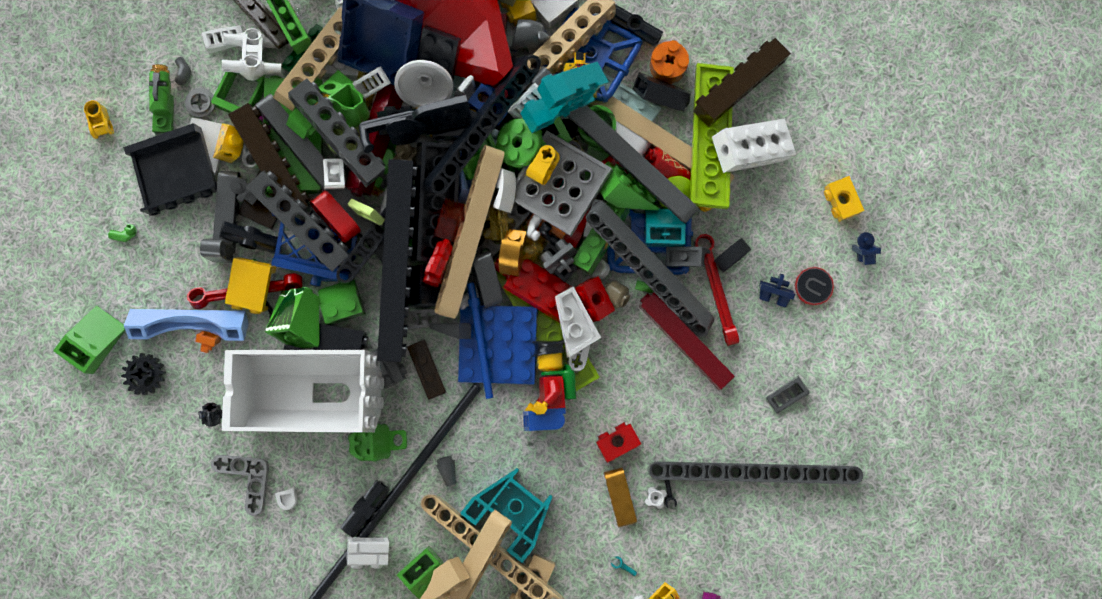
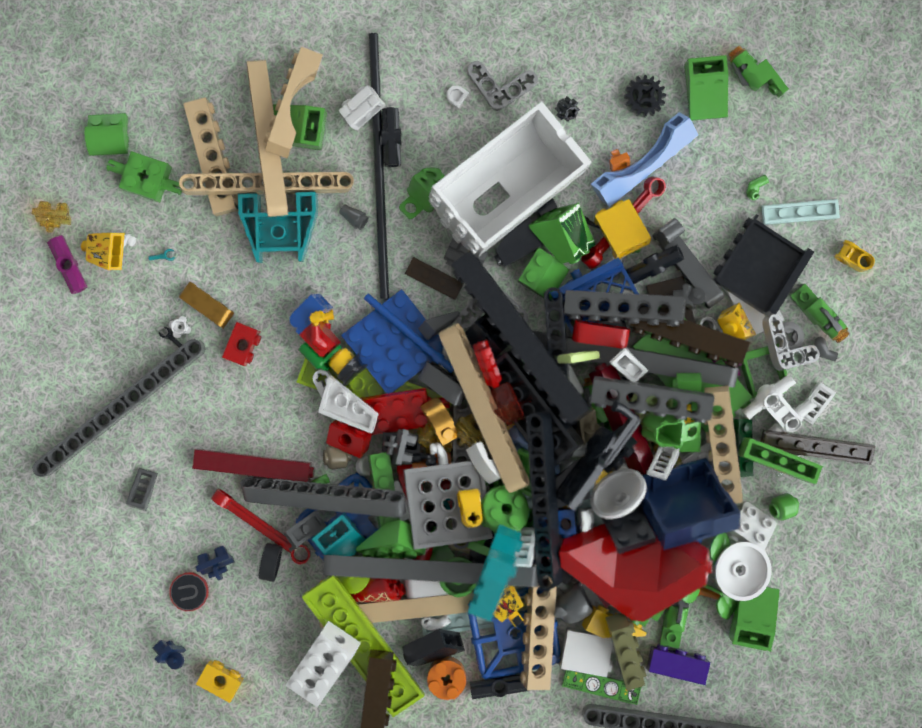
camera: 135 degrees right, 5 degrees up
(46, 318) = (756, 75): none -> bright green plate
(108, 187) = (800, 212): none -> light aqua tile
(201, 117) = (783, 351): none -> light grey beam
(645, 108) = (434, 624): none -> white arm

